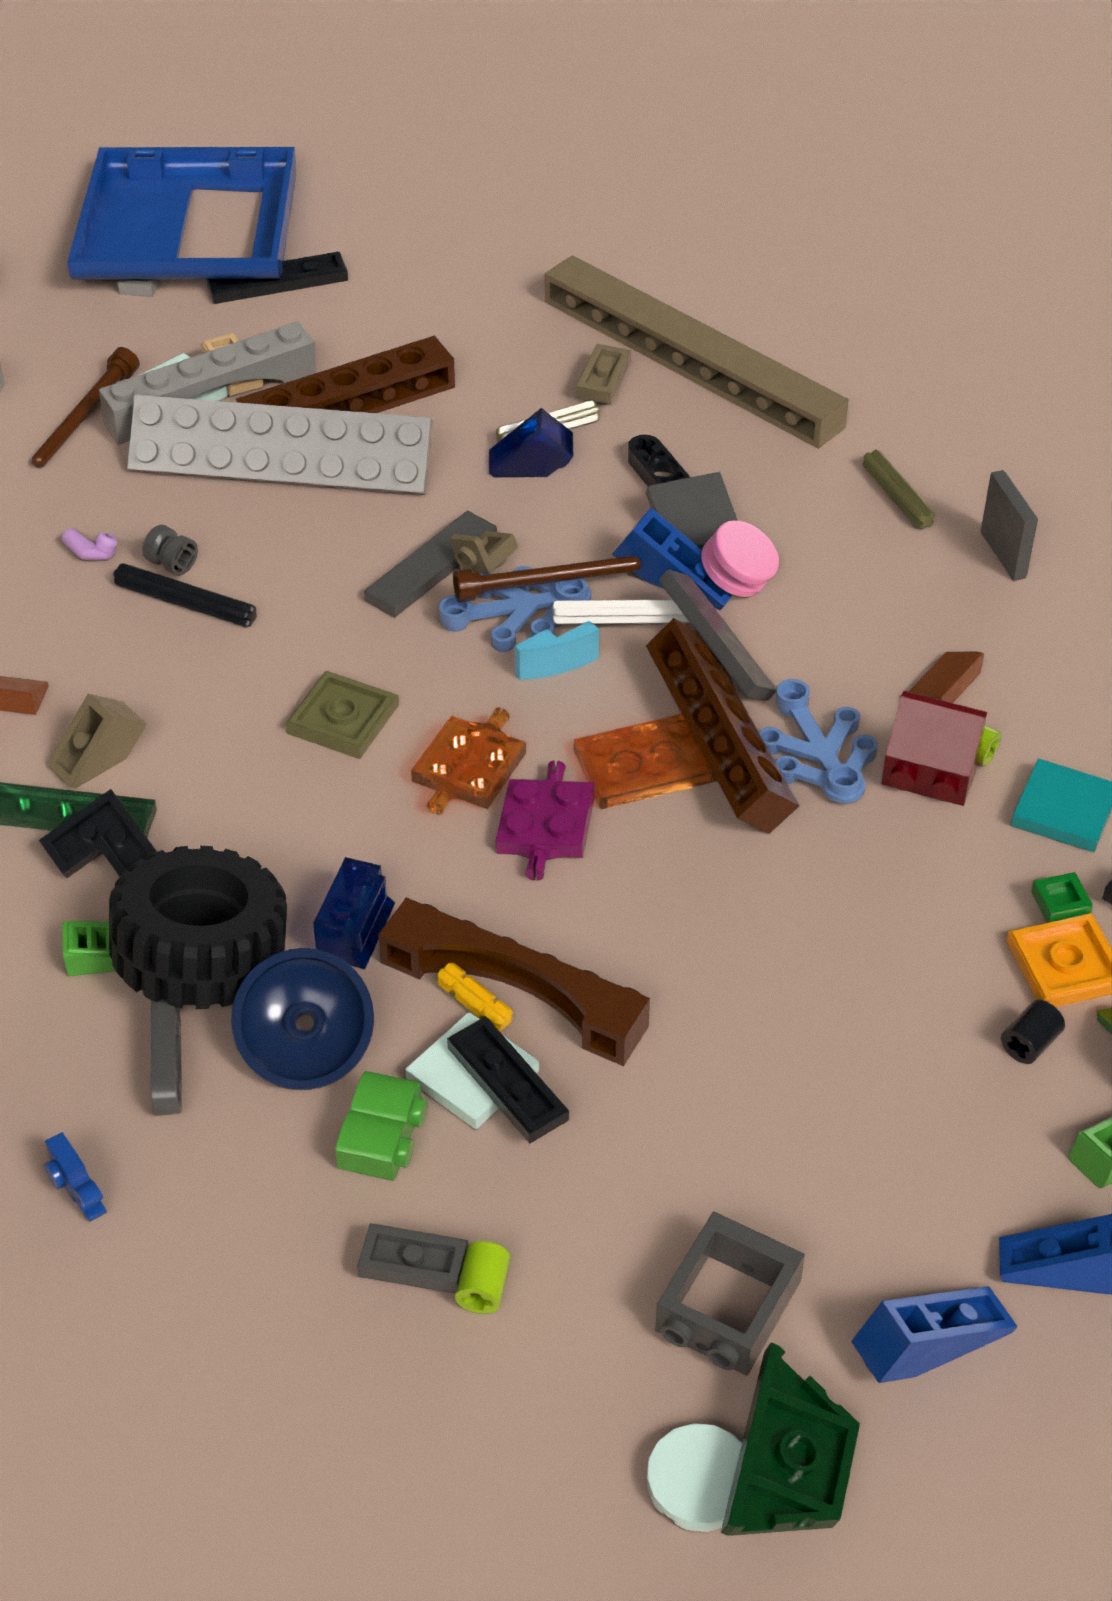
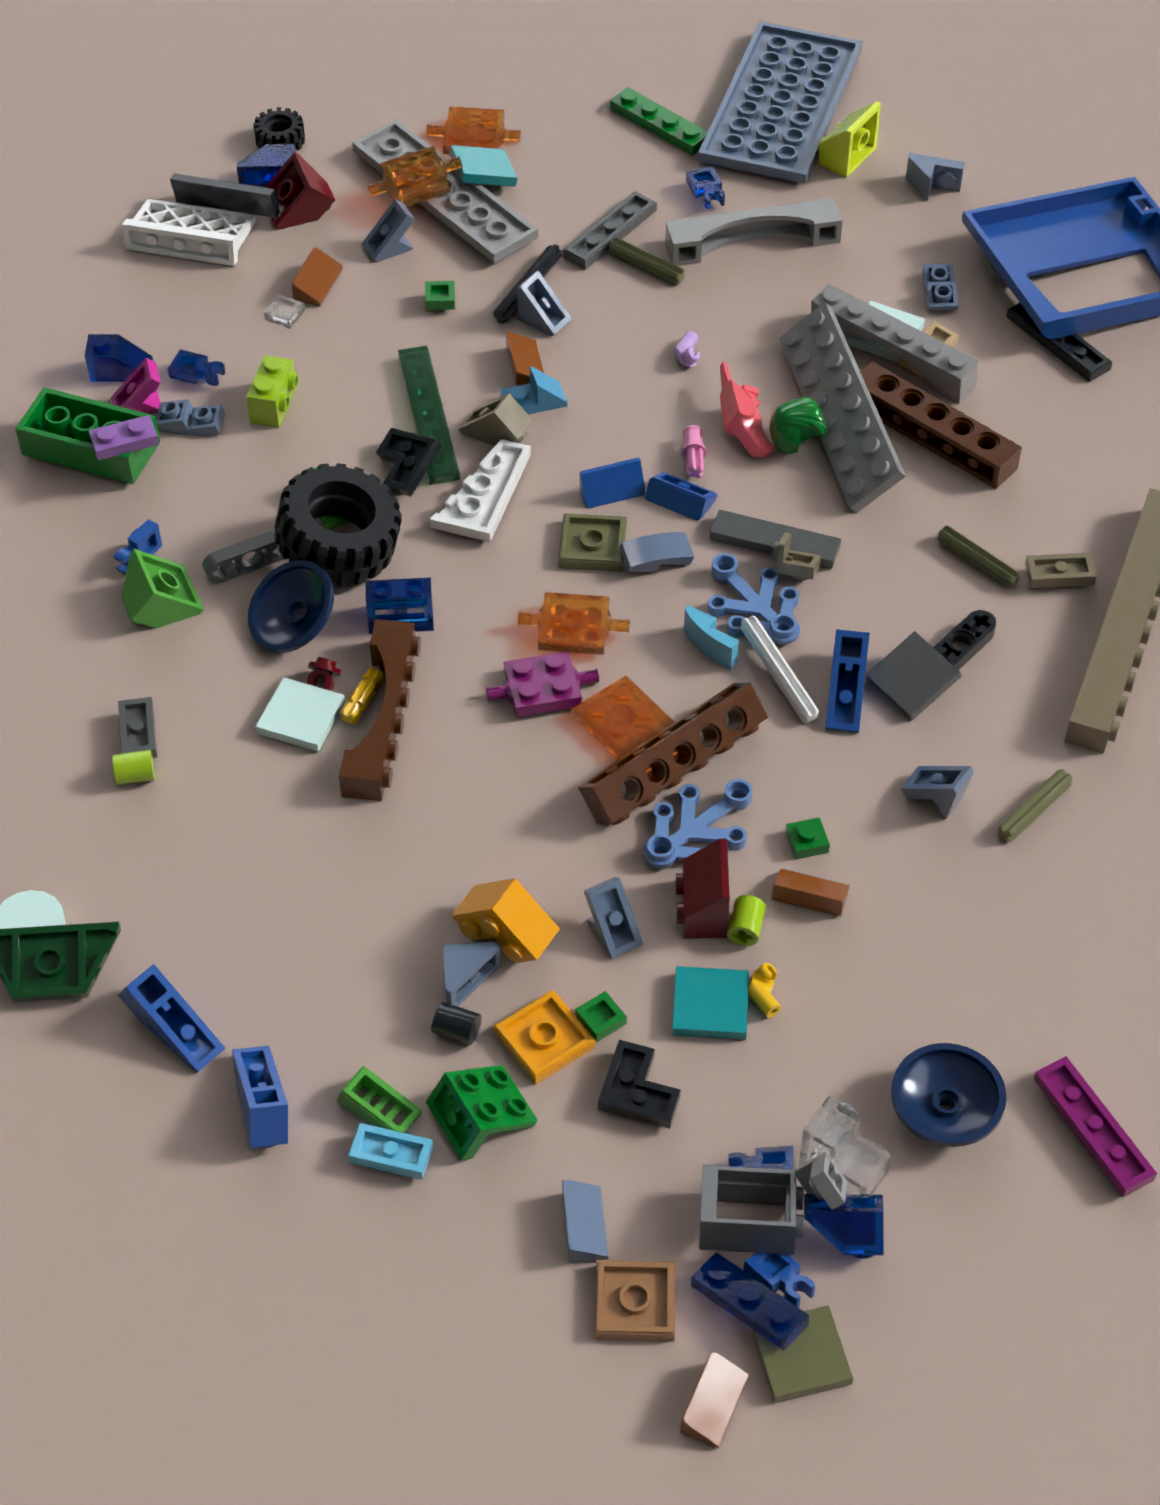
camera: 70 degrees right, 5 degrees up
(64, 697) = (539, 395): none -> dark azure slope
(120, 366) = (887, 291): reddish brown piece -> none
(133, 331) = (940, 287): none -> sand blue slope
(172, 551) = (700, 390): dark grey wheel -> none
(177, 1173) = (158, 591): none -> bright green slope
(185, 595) = (665, 417): black axle -> none
(209, 787) = (485, 495): none -> white wing
(230, 526) = (741, 415): none -> coral animal
(261, 585) = (693, 451): none -> bright pink axle
(266, 668) = (612, 483): none -> blue slope
(287, 484) = (796, 421): none -> green hair
(316, 620) = (679, 495): none -> blue slope
(380, 1126) = (231, 678): bright green brick -> none
(400, 659) = (651, 551): none -> sand blue slope
(418, 1019) = (323, 668): none -> dark red plate
(472, 584) = (740, 559): reddish brown piece -> none
(508, 1079) = (290, 730): black tile -> none
(532, 448) = (933, 555): clear blue slope -> none
(717, 635) = (770, 723): dark grey tile -> none
(740, 558) = (868, 715): bright pink head -> none
(750, 1254) = (162, 923): dark grey window -> none
(861, 530) = (941, 783): none -> sand blue slope
(870, 664) = (807, 838): none -> green plate
(903, 934) = (509, 916): none -> light orange brick
(931, 848) = (612, 917): none -> sand blue slope
(963, 1005) = (468, 967): none -> sand blue slope
(1008, 525) = (1005, 881): dark grey tile -> none
(1078, 760) = (761, 987): none -> yellow arm

